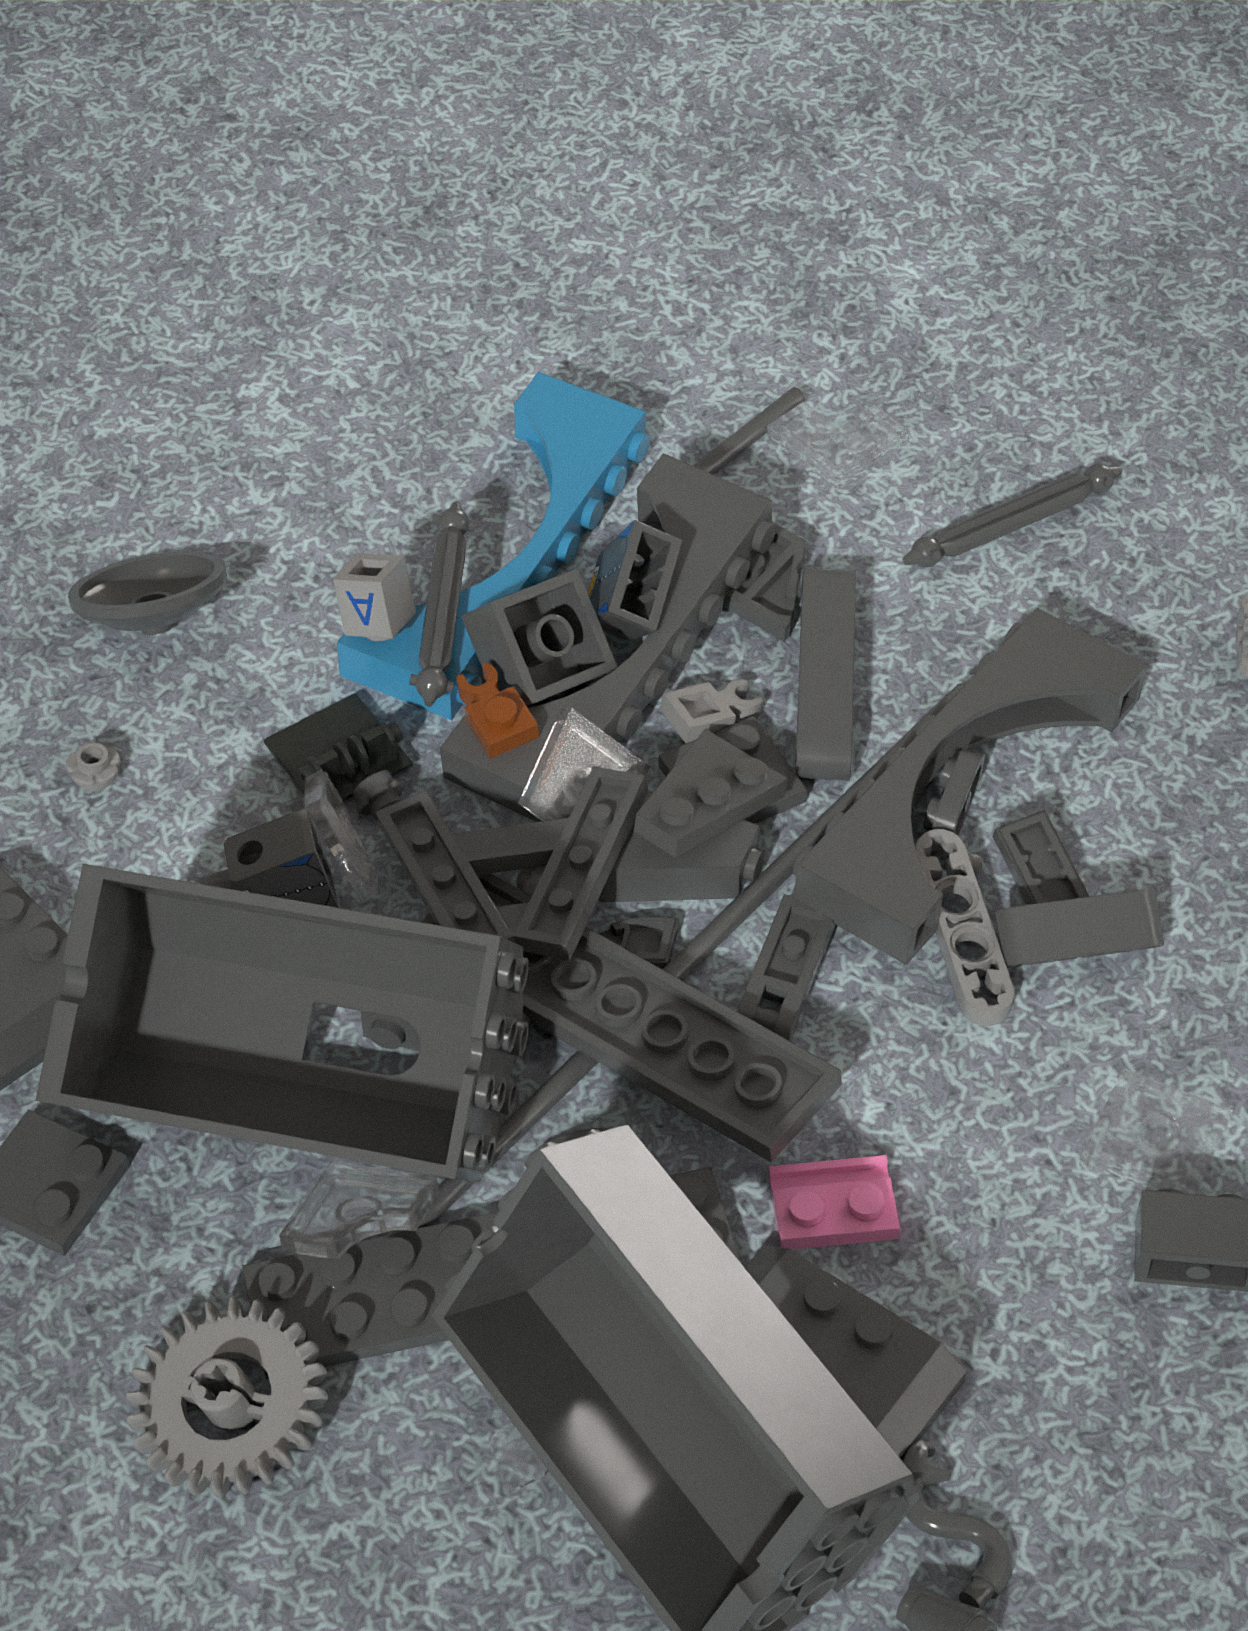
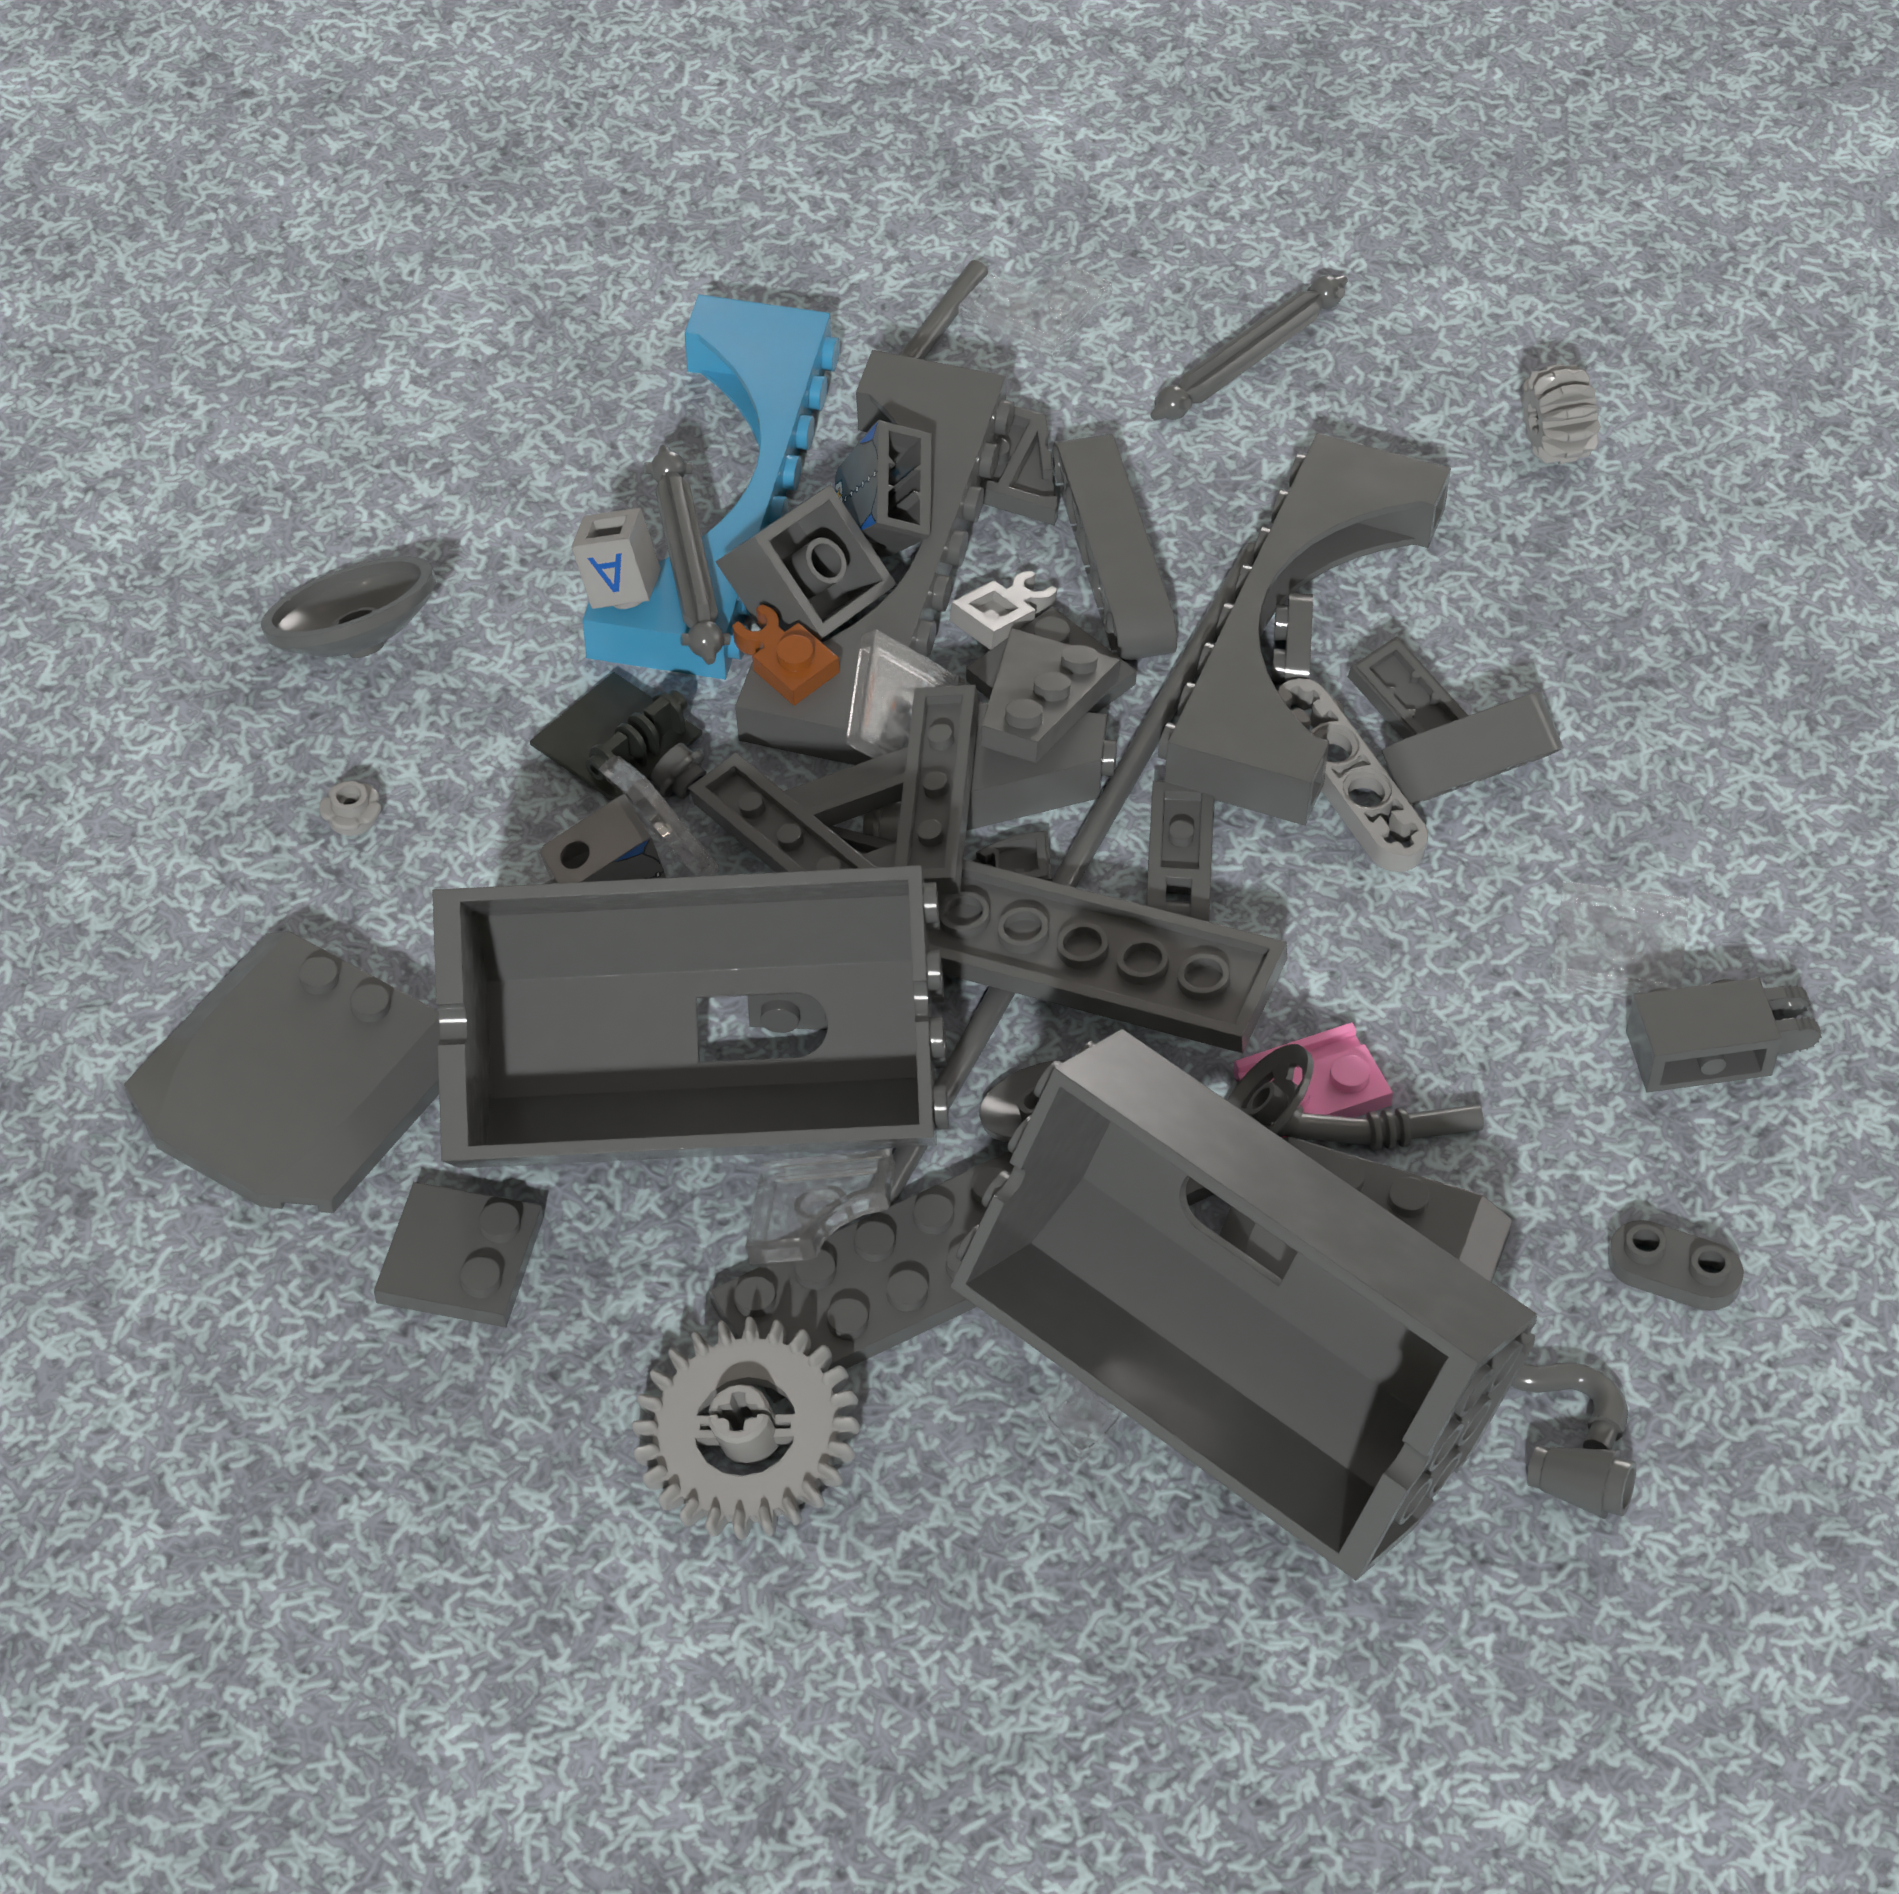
camera: 15 degrees left, 0 degrees up
(781, 1217) = (1279, 1108): none -> dark grey dish
(1099, 1449) = (1675, 1265): none -> dark grey plate

